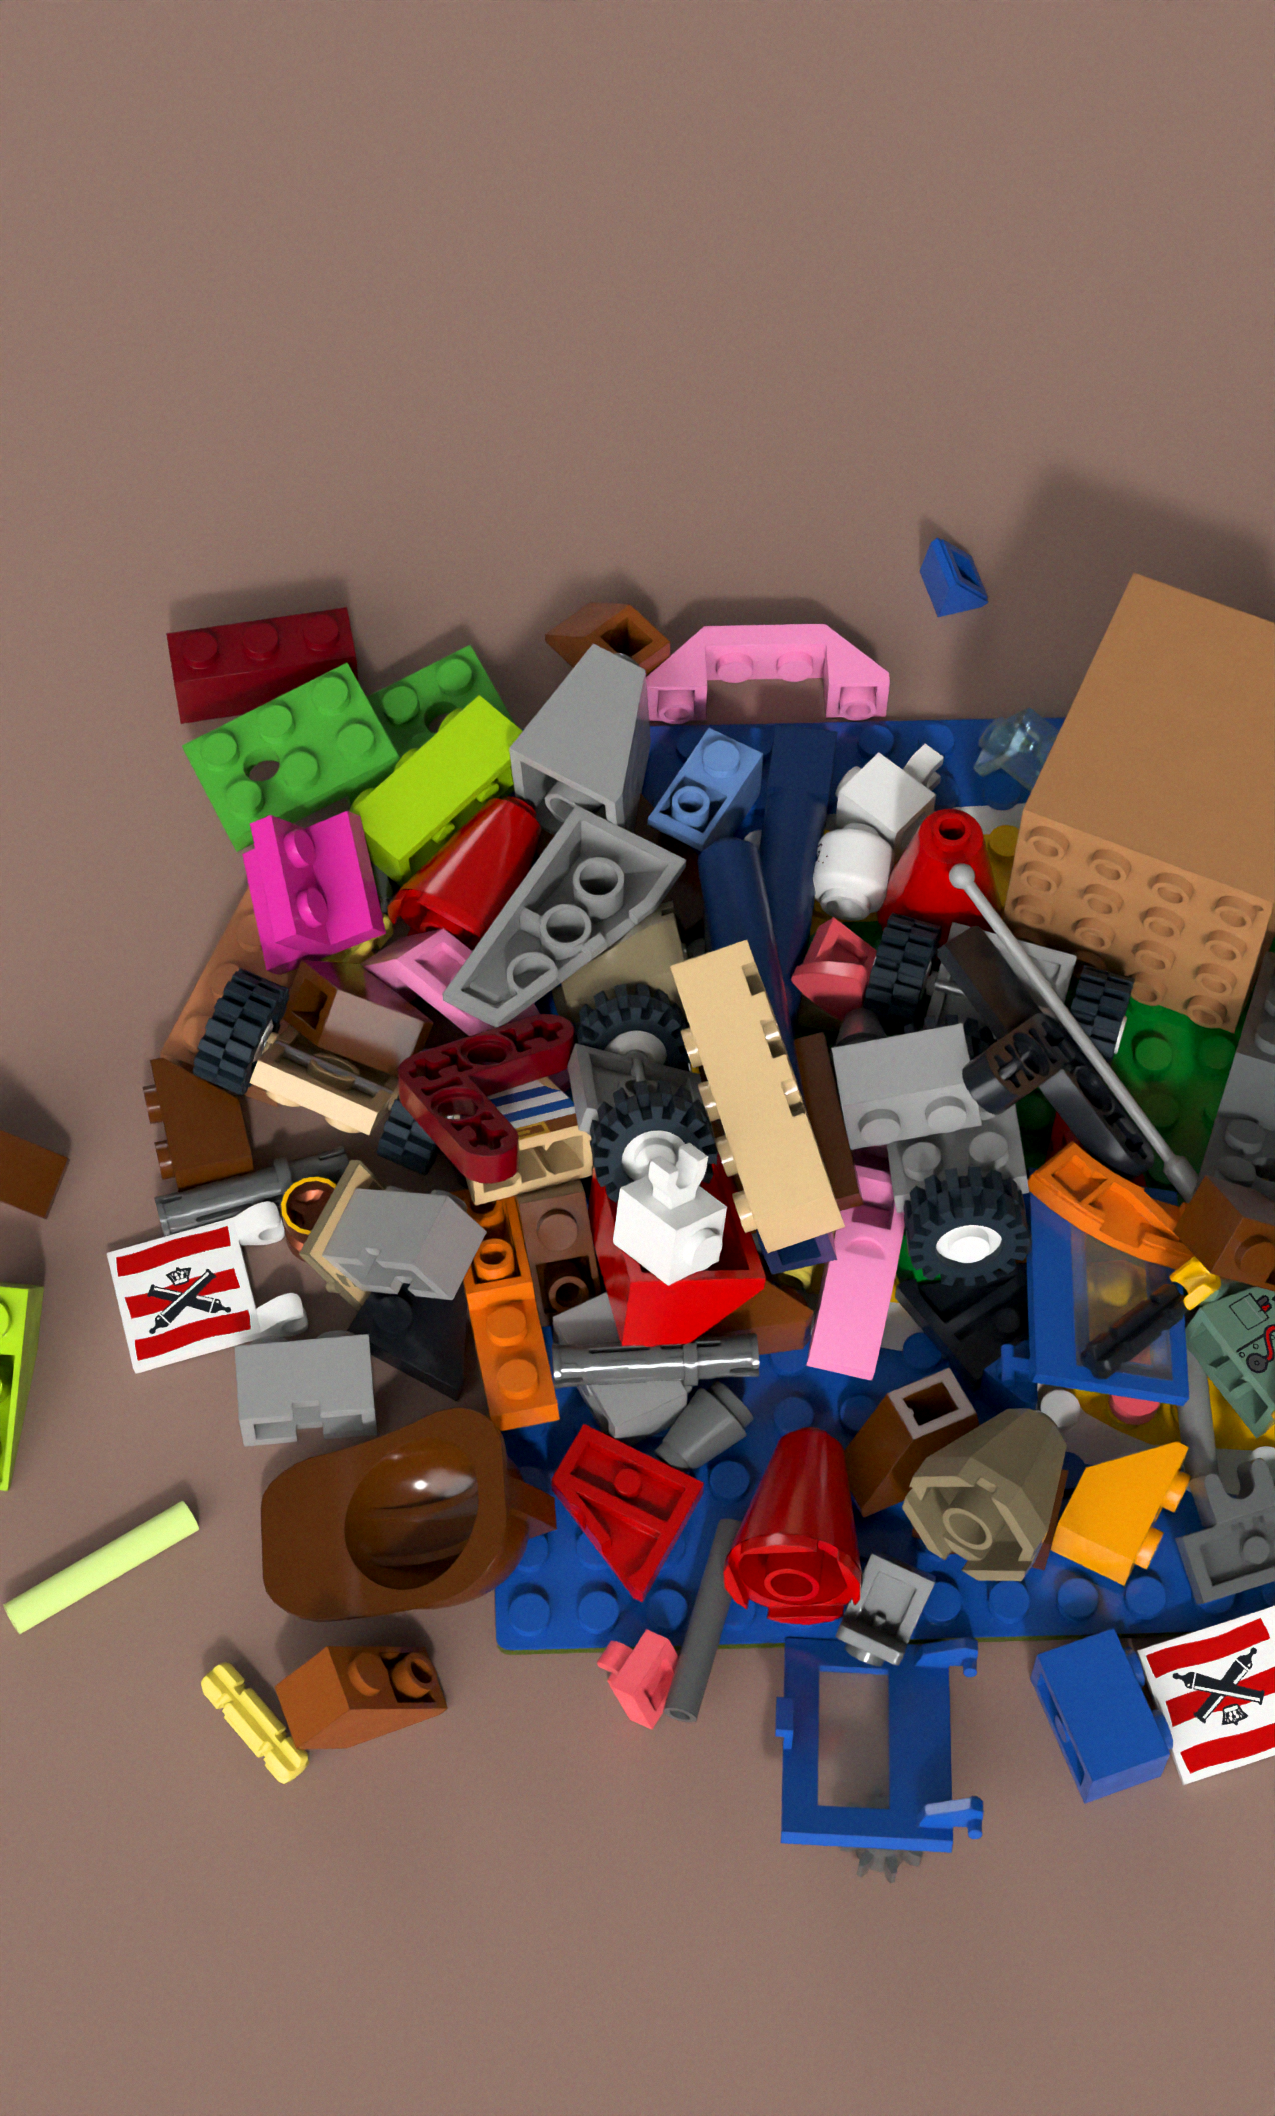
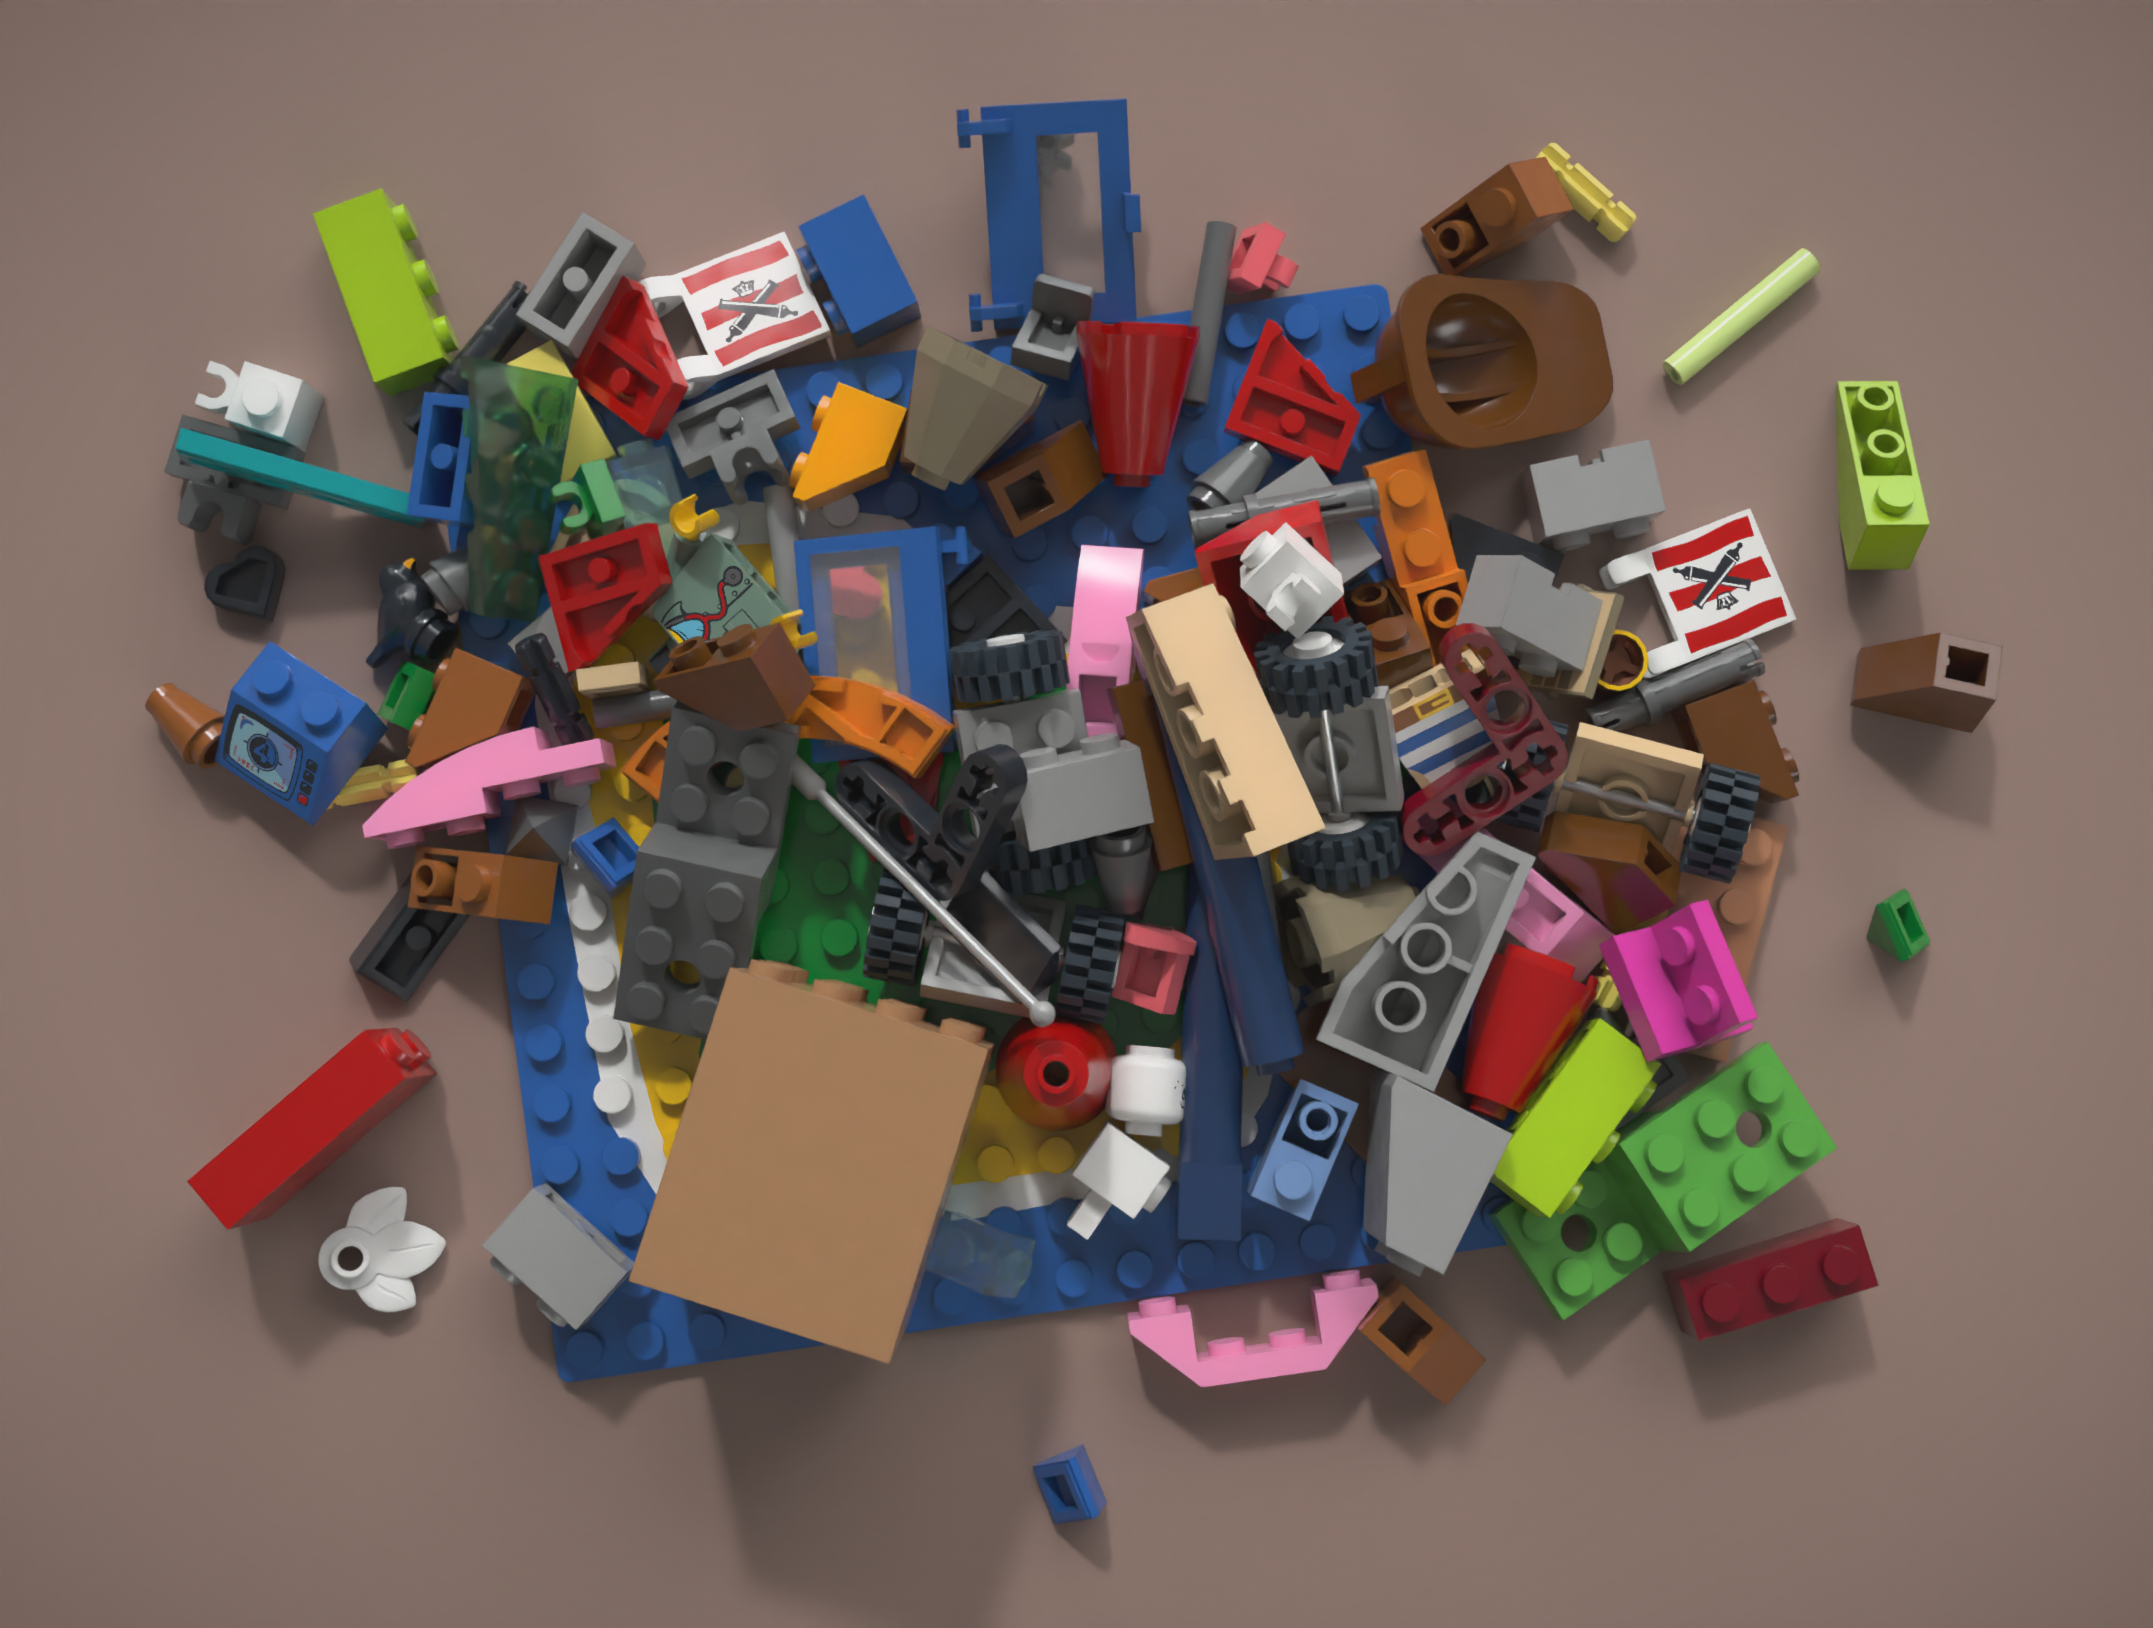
camera: 175 degrees right, 25 degrees up
(64, 951) = (1898, 927): none -> green slope
(1134, 1331) = (847, 585): black axle -> none

